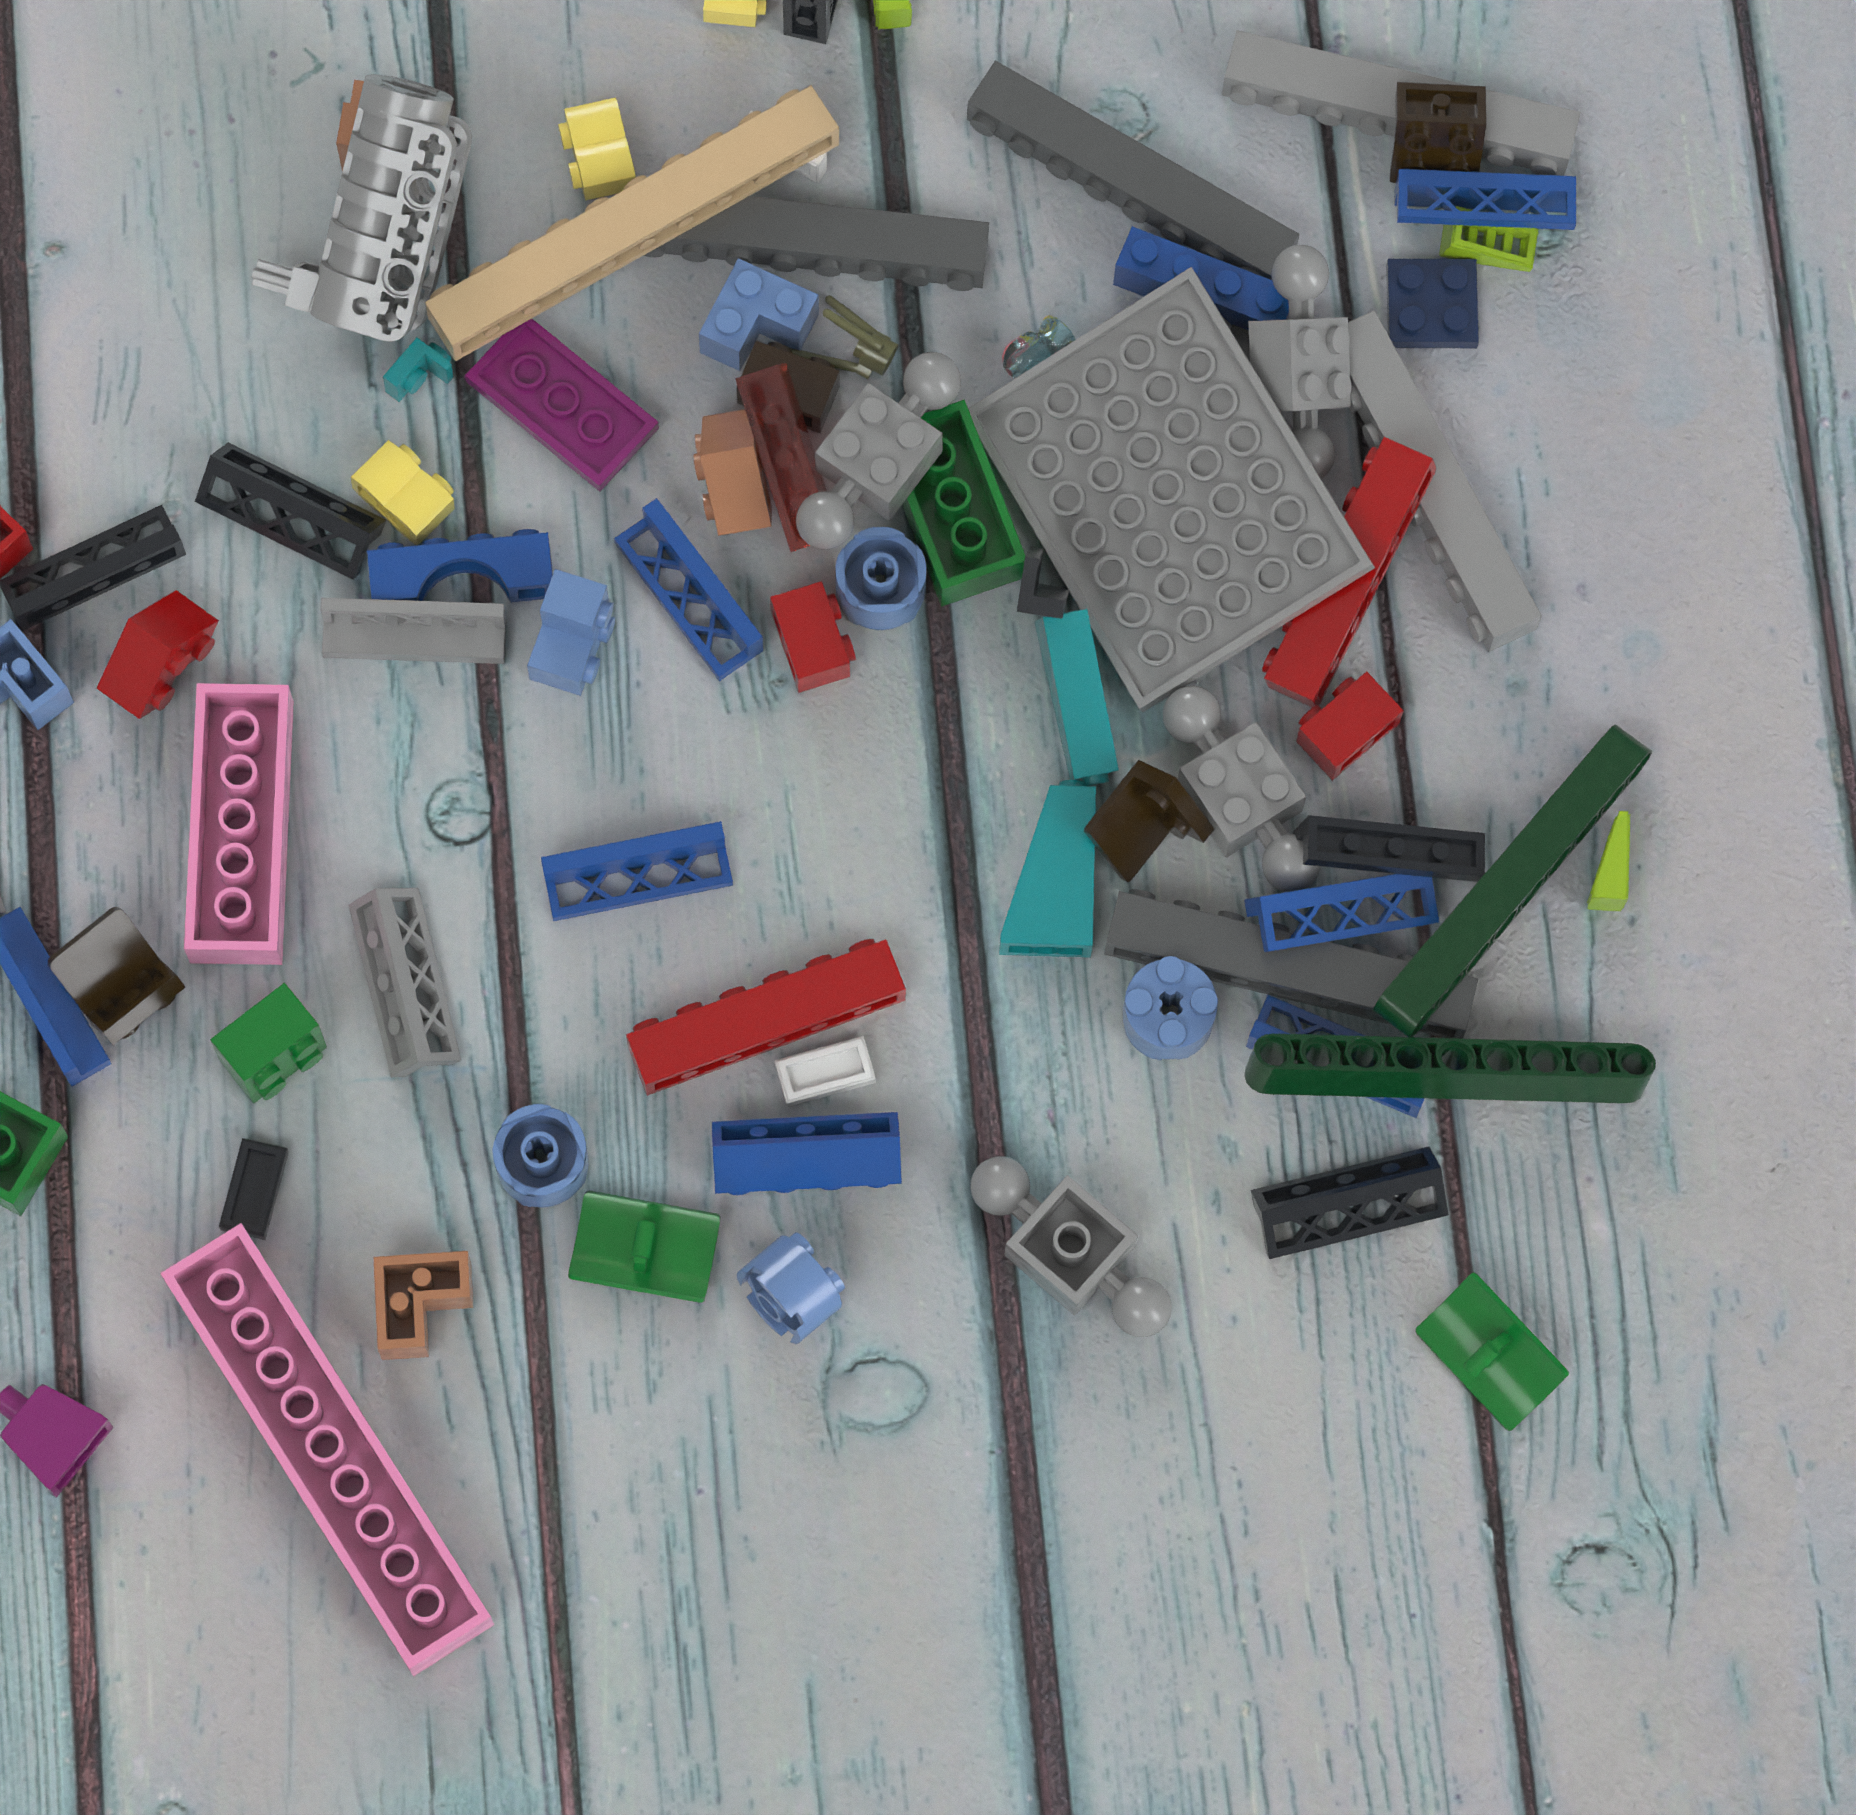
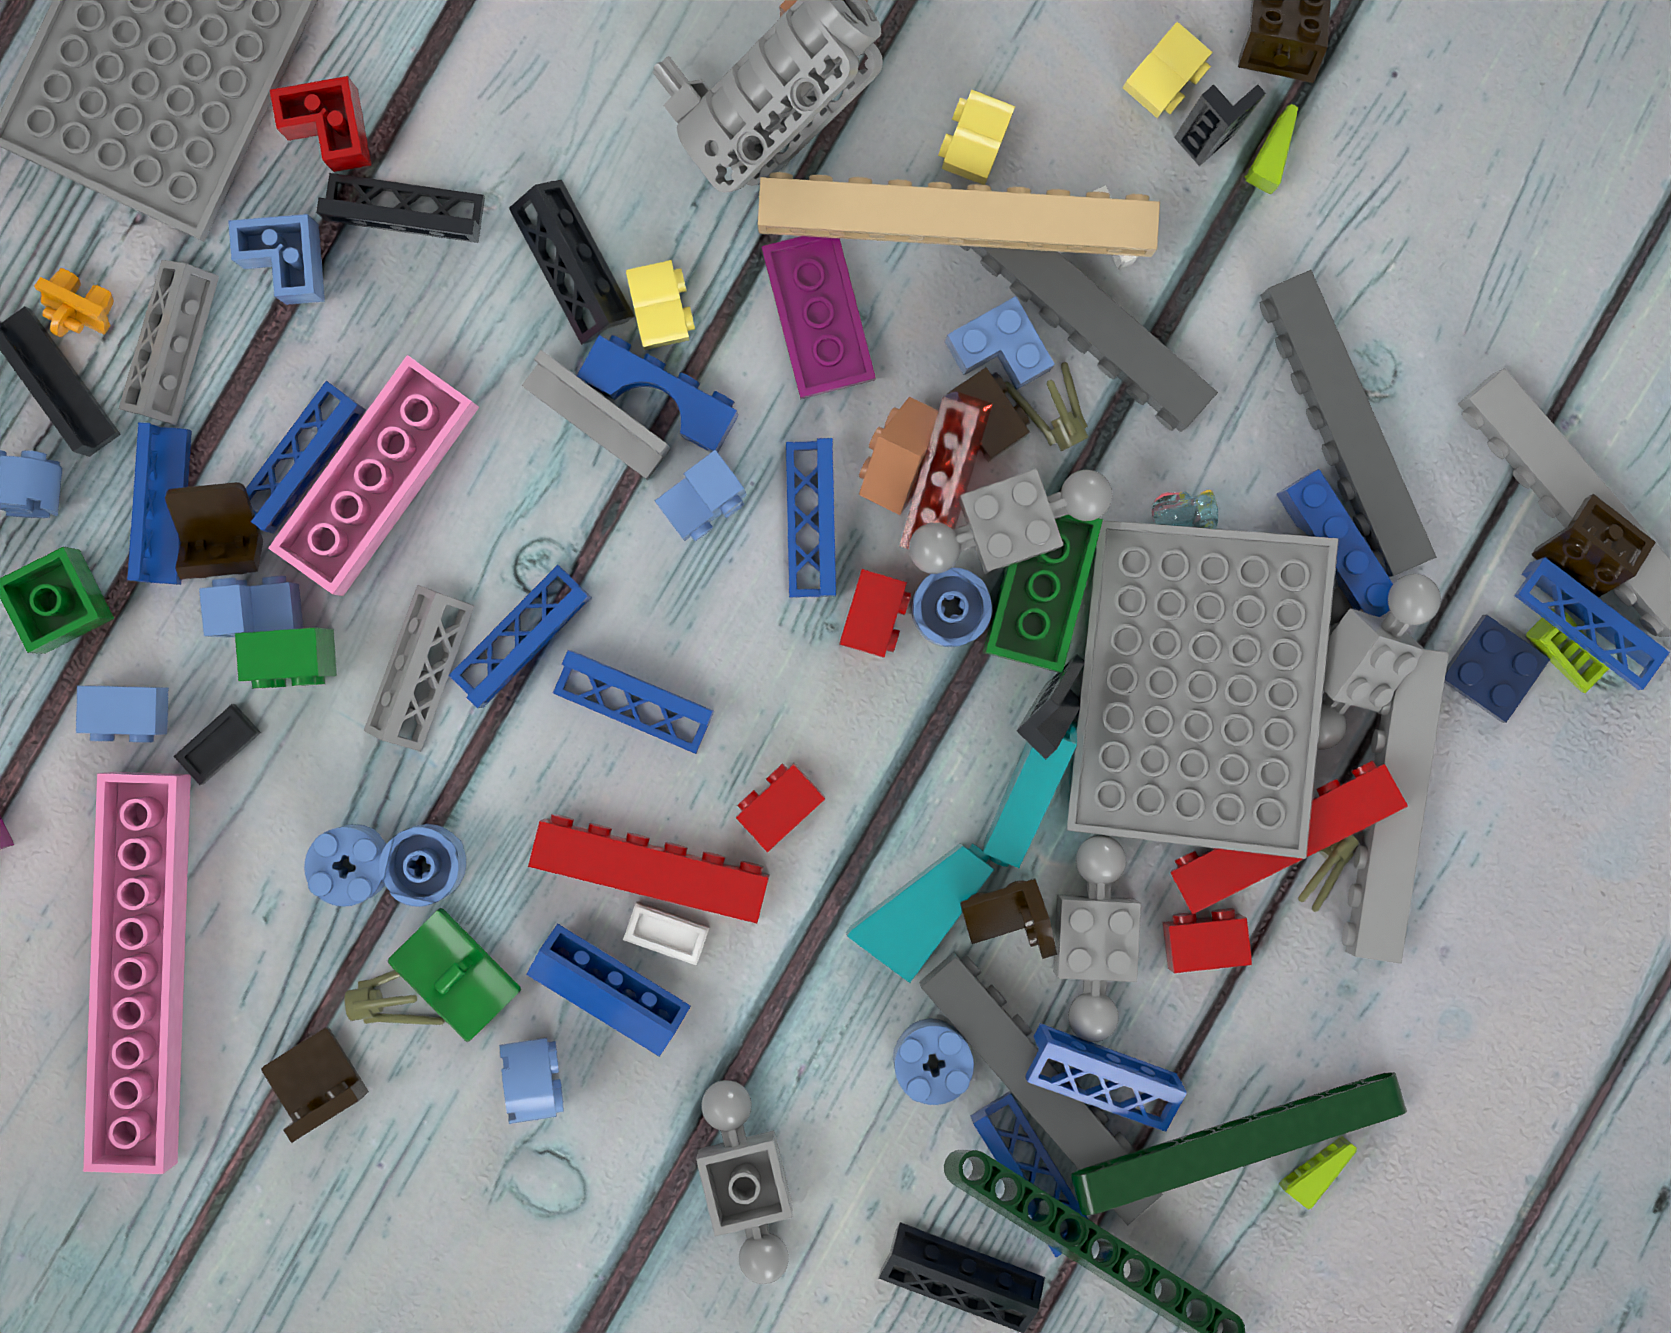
camera: 35 degrees right, 15 degrees up
(140, 1210) = (122, 710): none -> medium blue brick
(156, 650) = (400, 307): red brick -> none
(163, 856) = (307, 462): none -> blue fence
(186, 1025) = (239, 608): none -> medium blue brick
(408, 1289) = (268, 898): nougat brick -> none
(410, 368) = (723, 215): teal bracket -> none
(479, 1184) = (331, 879): none -> medium blue brick
(498, 883) = (524, 649): none -> blue fence
(575, 1332) = (369, 1003): none -> olive plant
(577, 1446) = (314, 1082): none -> dark brown bracket
(849, 873) = (779, 806): none -> red brick
(1392, 848) = (1169, 1065): black fence -> none
(1405, 565) = (1337, 855): none -> olive plant

